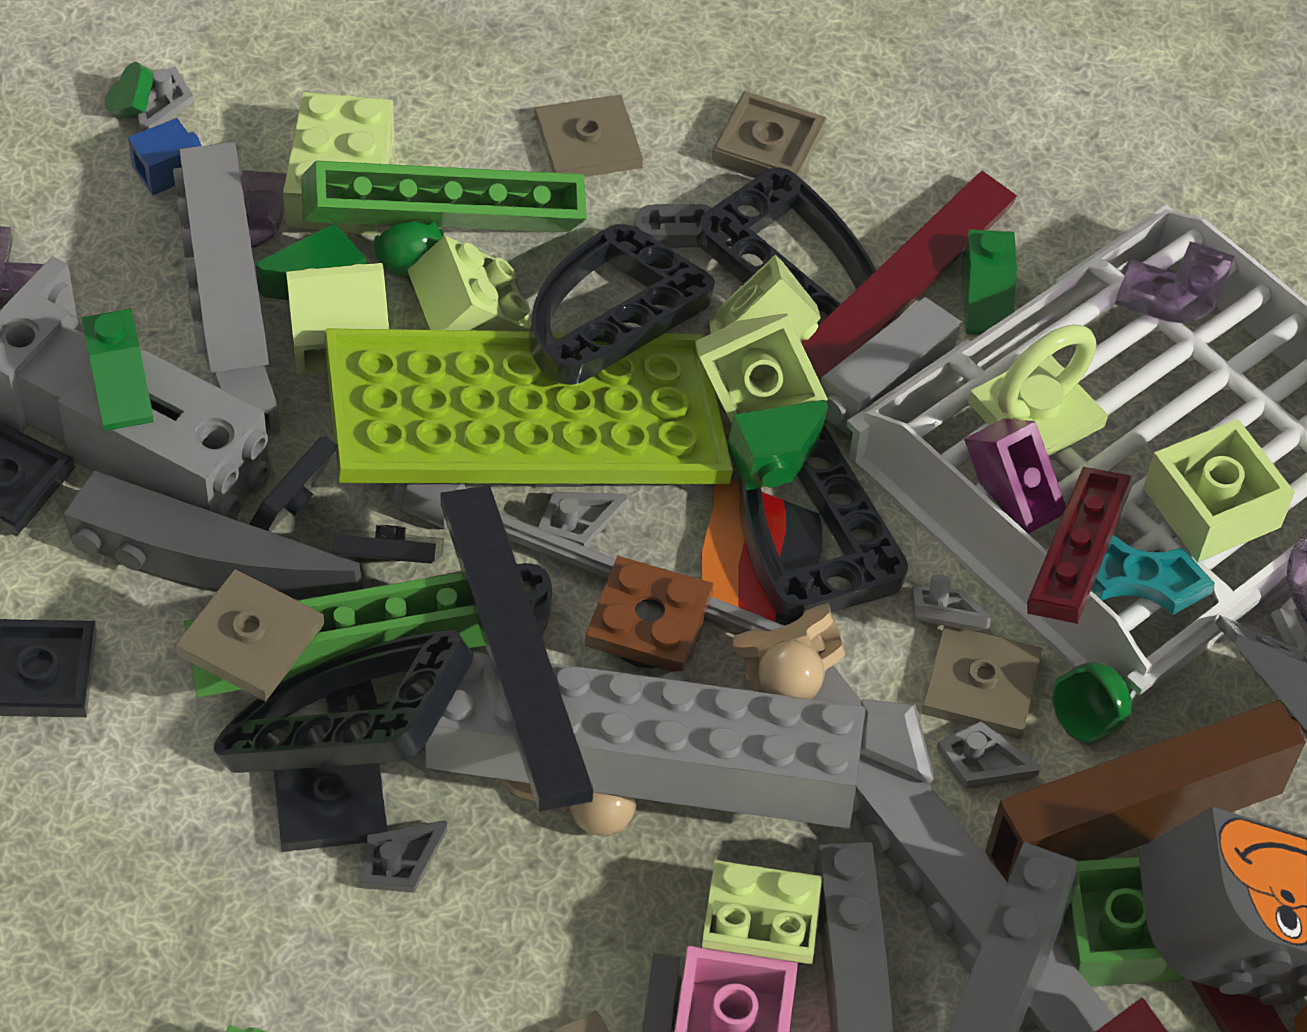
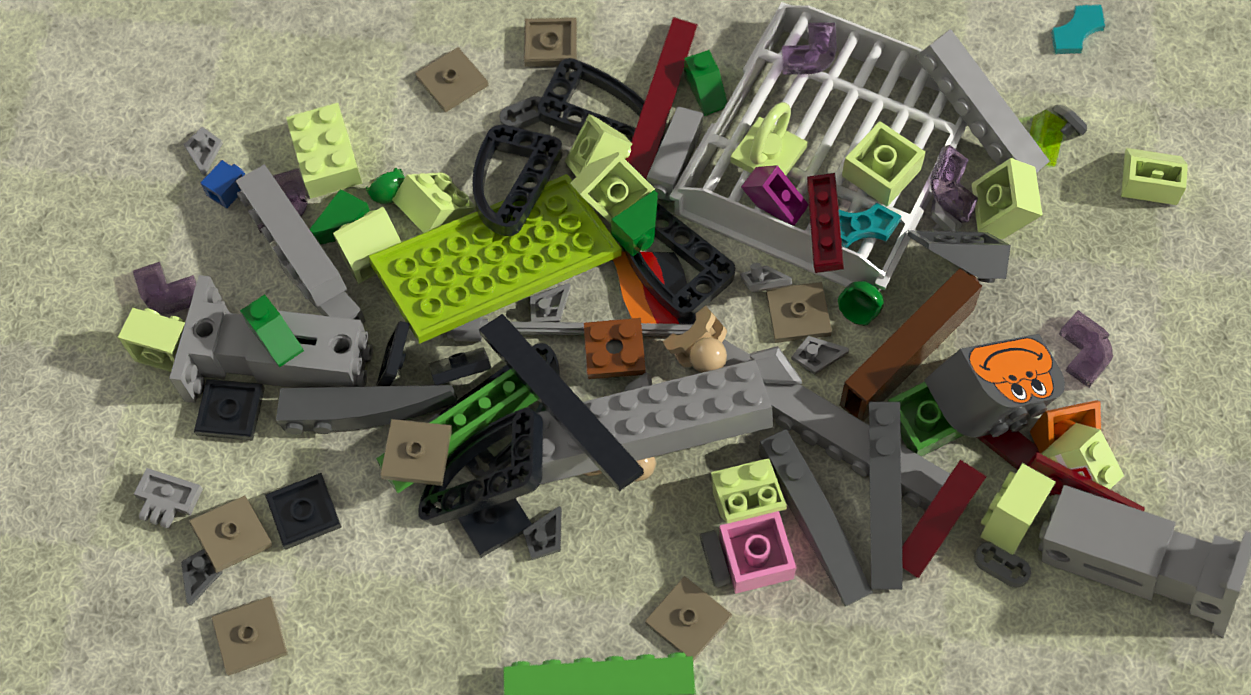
camera: 15 degrees left, 10 degrees up
(131, 92) = (186, 152): green tile -> none
(443, 195) = (394, 152): bright green brick -> none

